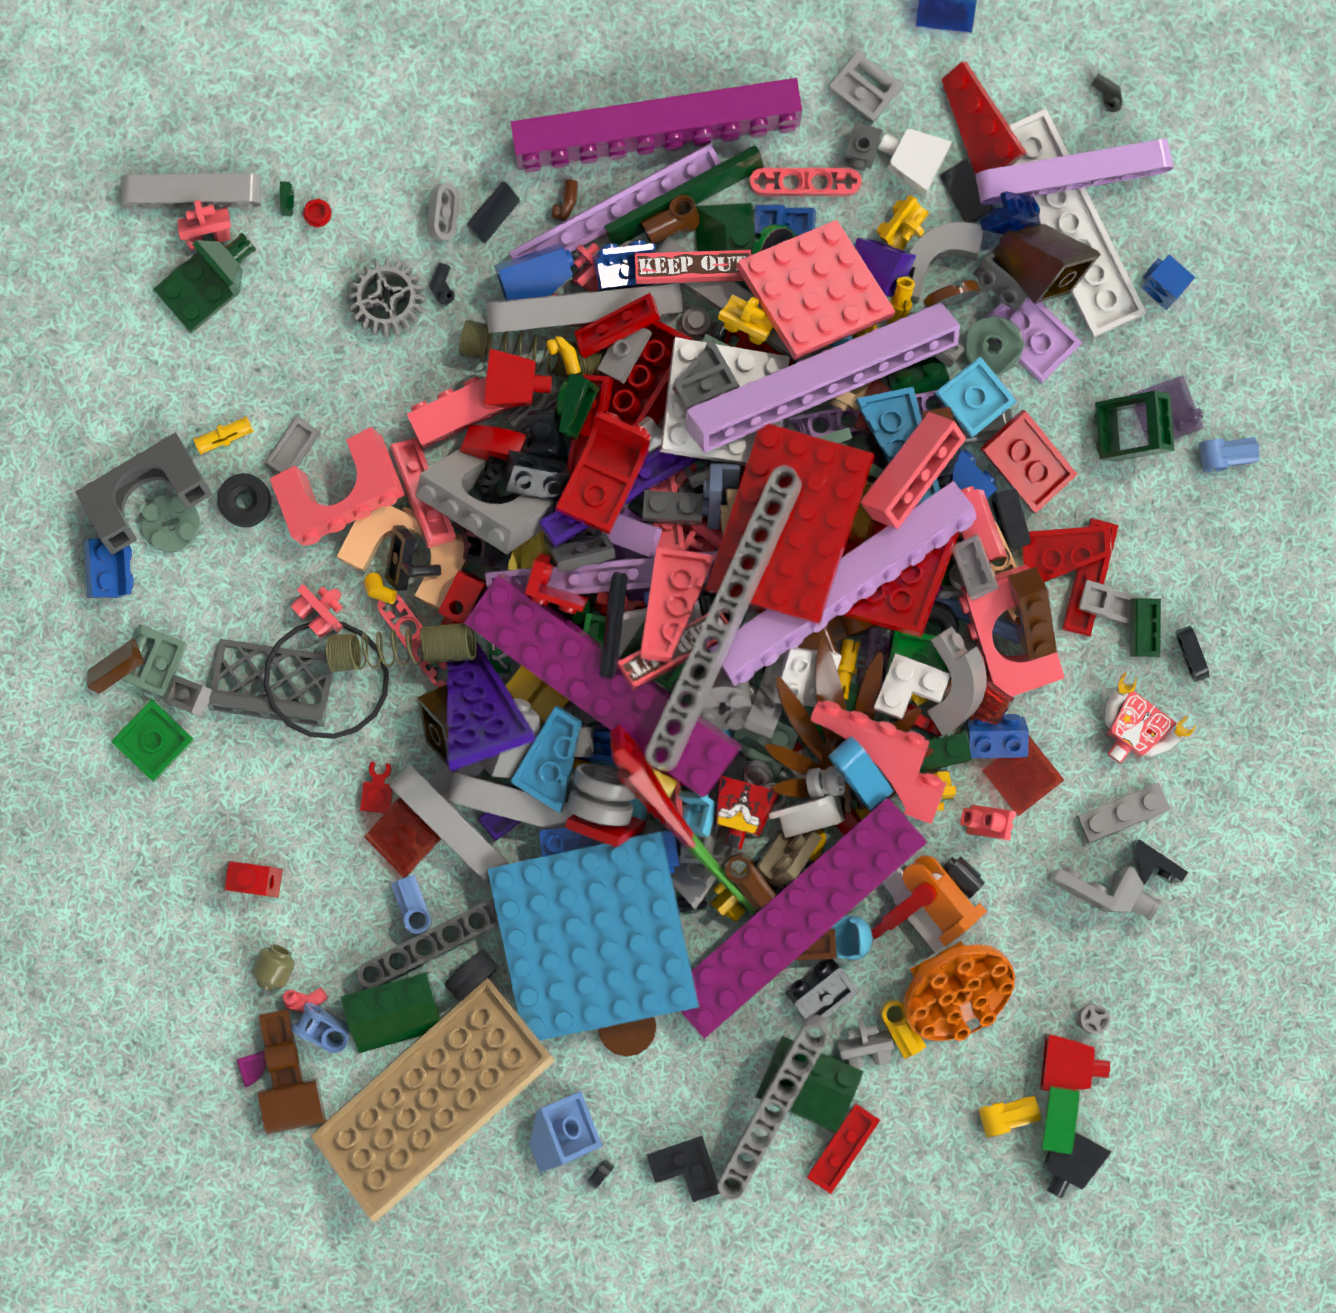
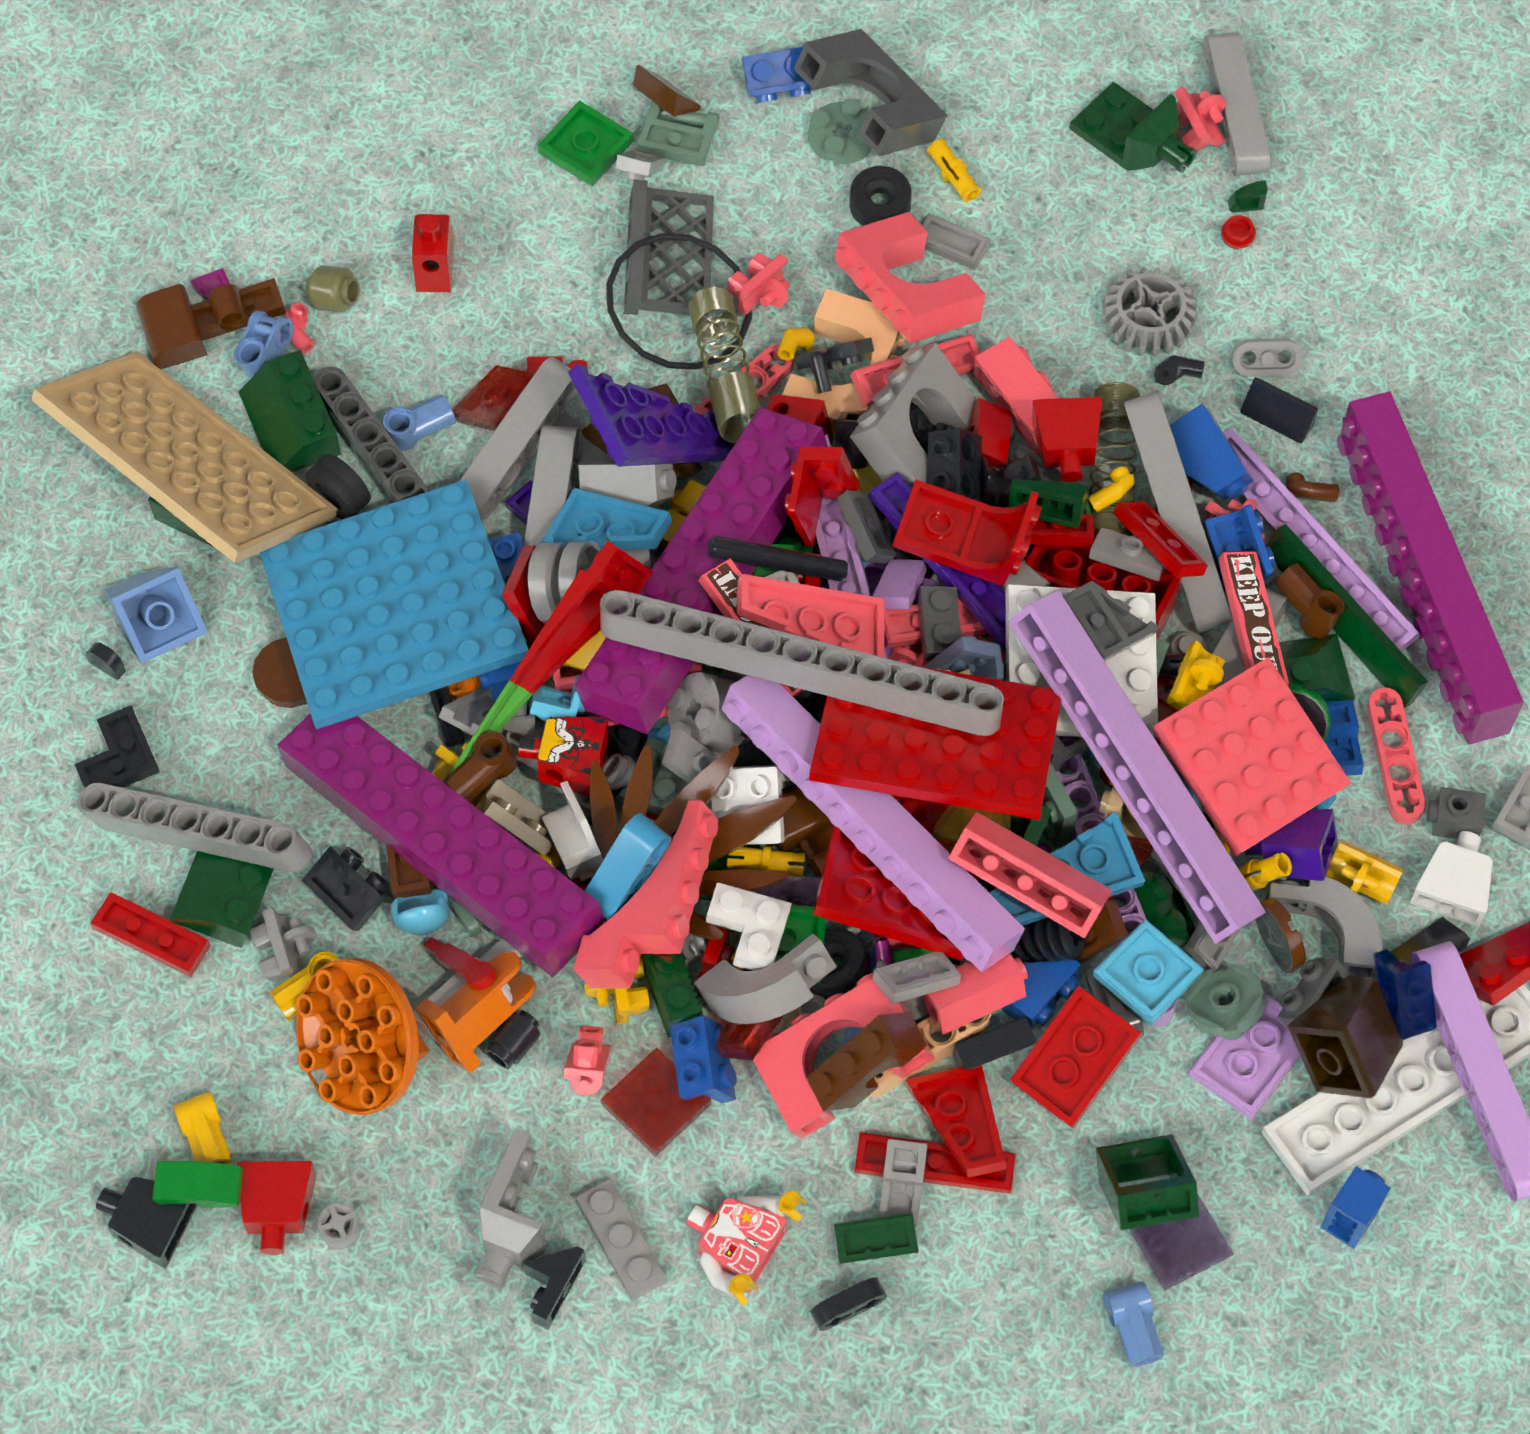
camera: 85 degrees right, 20 degrees down
(825, 781) = (607, 827): light grey wheel -> none

